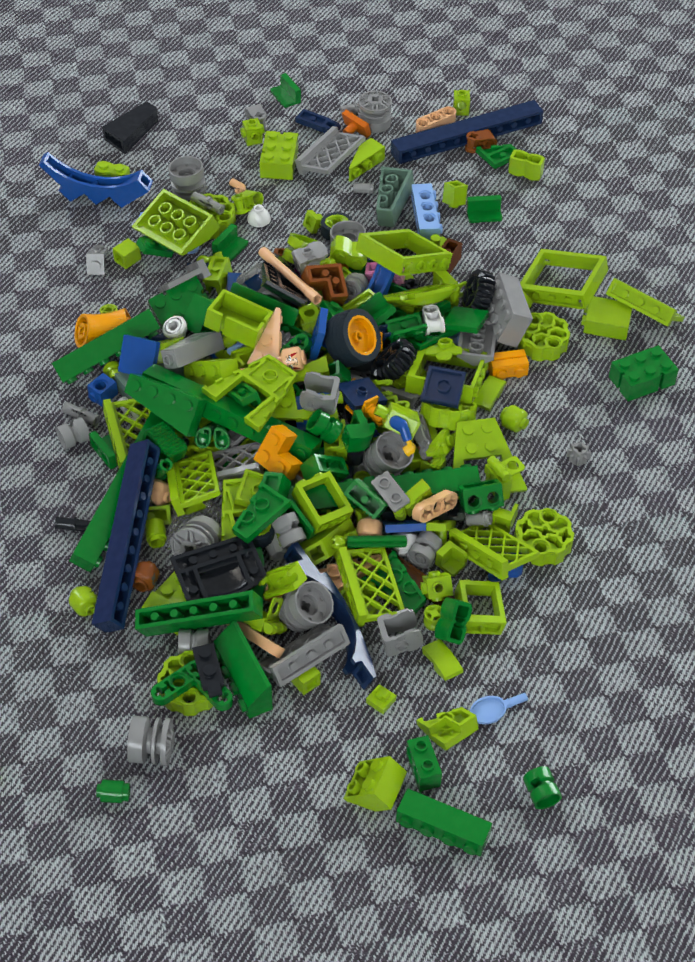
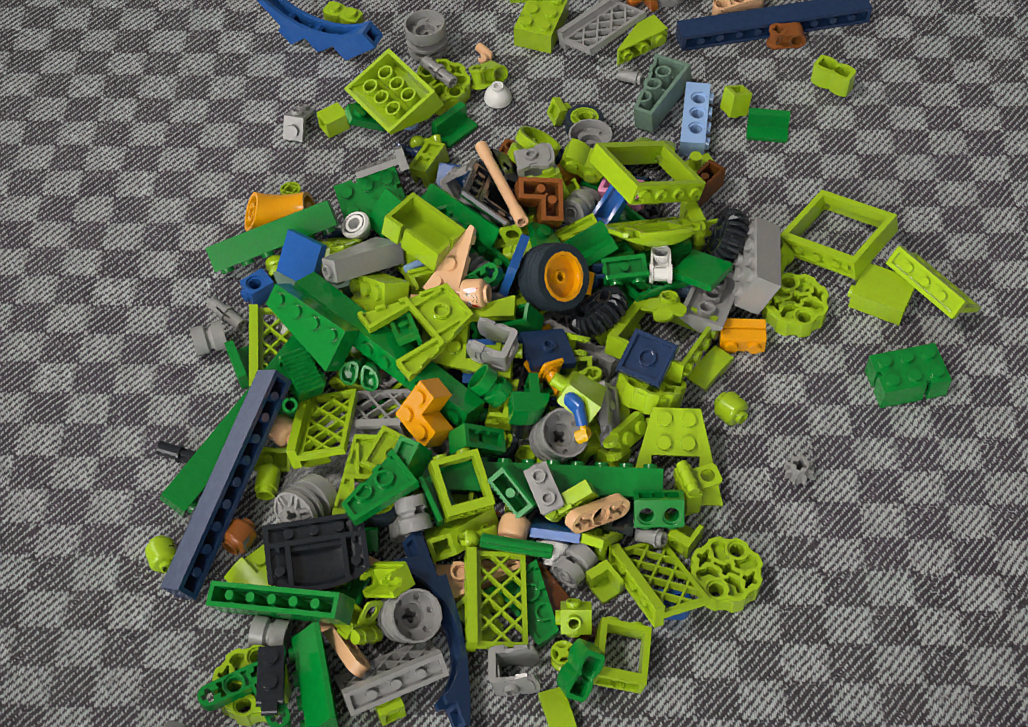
camera: 15 degrees right, 5 degrees up
(497, 155) = (802, 56): green wing -> none

